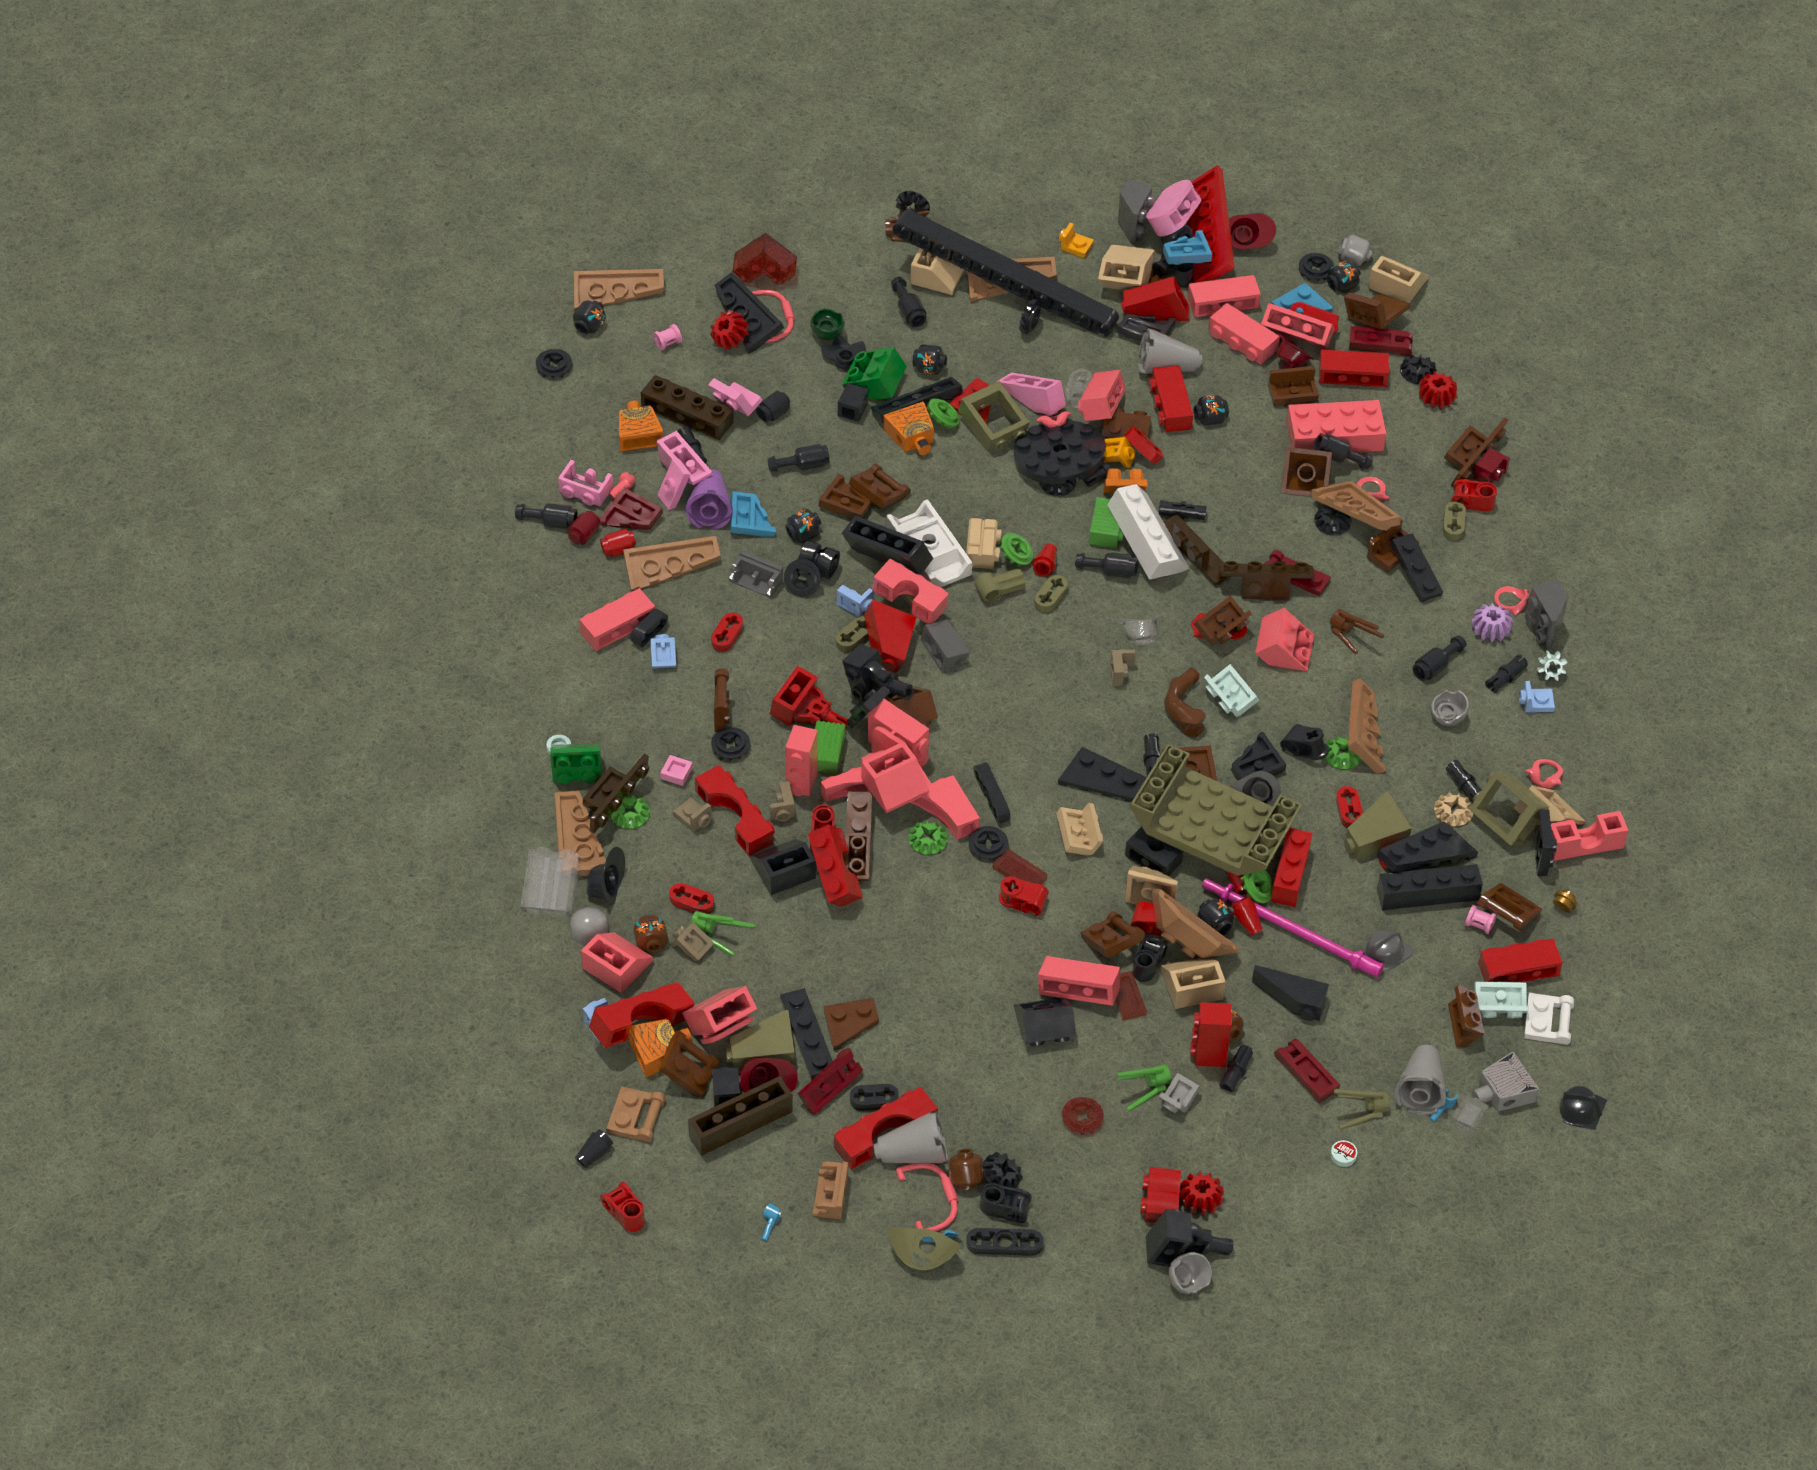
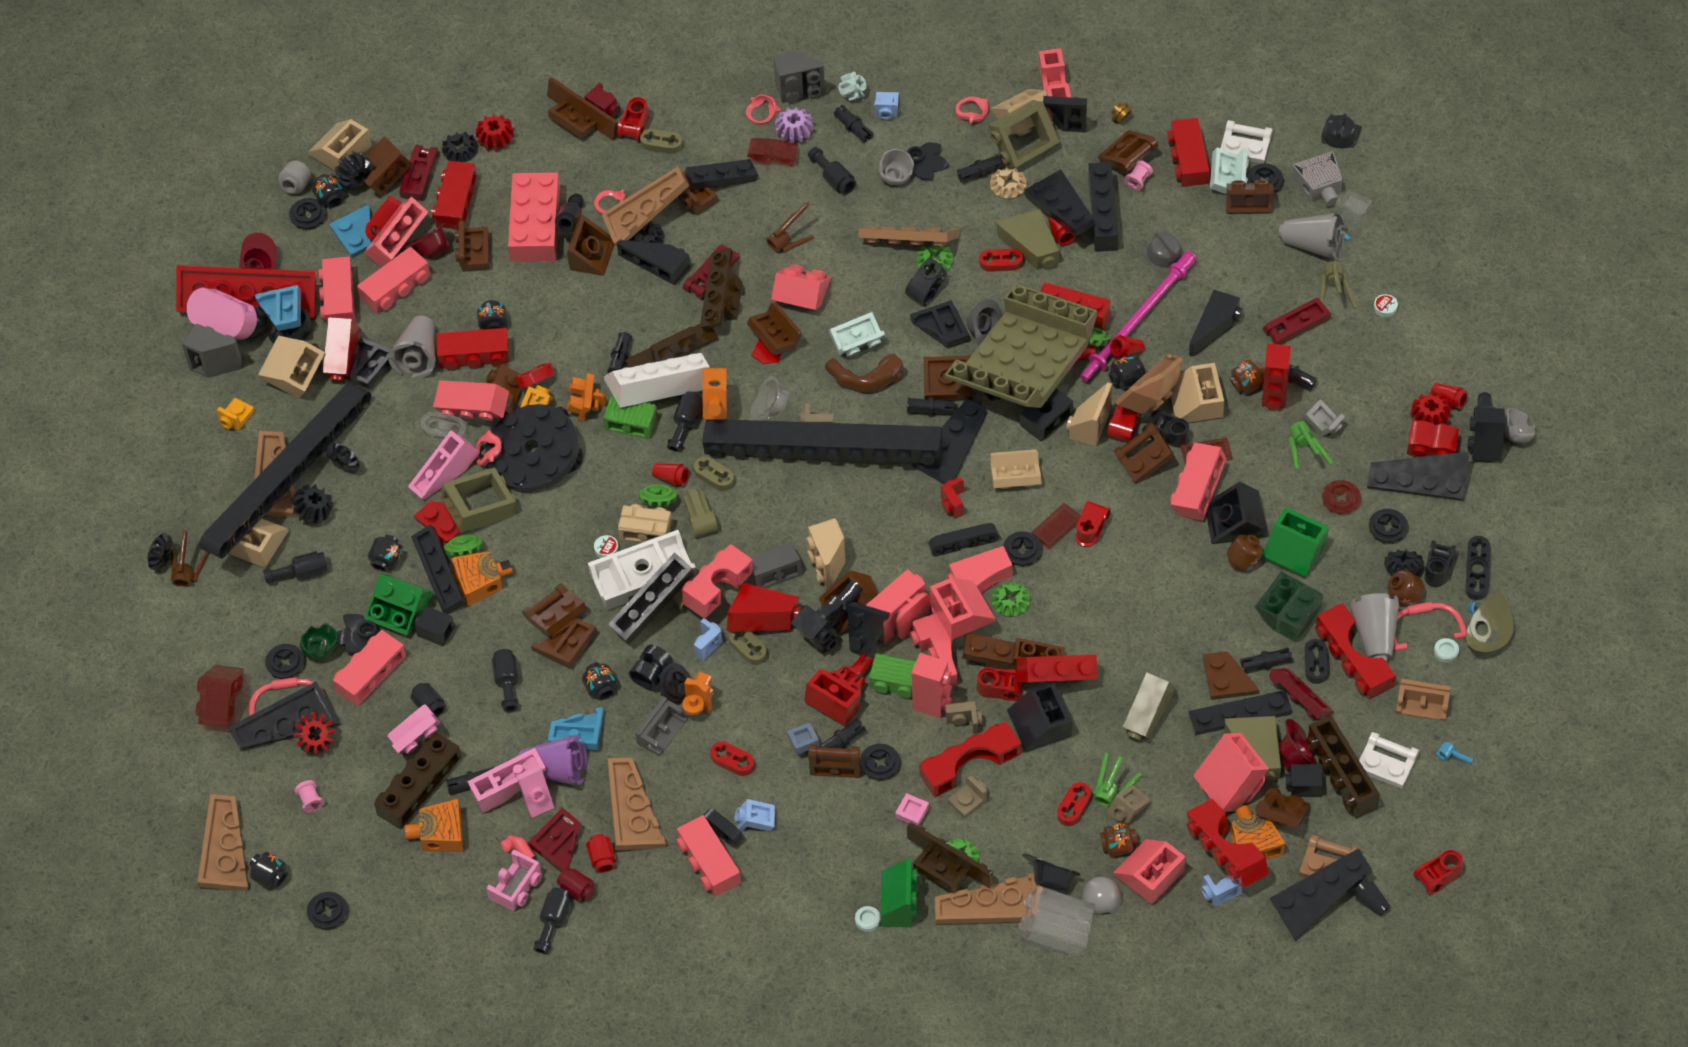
camera: 80 degrees left, 5 degrees up
(594, 1100) = (1313, 896): none -> black wing
(747, 679) = (801, 738): none -> sand blue tile
(751, 1158) = (1385, 767): none -> white plate
(753, 711) = (843, 737): none -> black pin
(787, 594) = (698, 694): none -> orange hips
(804, 362) = (369, 667): none -> coral brick
(805, 949) = (1148, 706): none -> slope
(806, 300) = (284, 652): none -> black gear
(871, 1053) = (1266, 660): none -> black pin
(898, 1214) = (1446, 650): none -> light aqua tile
(933, 1066) = (1289, 606): none -> clear green slope
(956, 678) = (826, 551): none -> tan slope
(957, 520) = (605, 546): none -> tile
(984, 299) = (312, 504): none -> black gear
(997, 1025) = (1244, 552): none -> reddish brown head
(1015, 1070) = (1295, 542): none -> green slope
(1040, 777) = (949, 495): none -> red bracket
(1043, 1150) = (1381, 518): none -> black gear
(1091, 670) = (823, 441): none -> black brick
(1115, 1188) = (1427, 475): none -> black wing
(1129, 574) = (715, 396): none -> orange torso
(1227, 1213) = (1456, 395): none -> red cone
(1299, 530) = (657, 258): none -> black slope
(1363, 283) = (353, 170): none -> black gear
(1456, 608) = (766, 149): none -> clear red slope
(1470, 740) = (928, 160): none -> black plate
(1500, 1026) = (1265, 170): none -> black gear

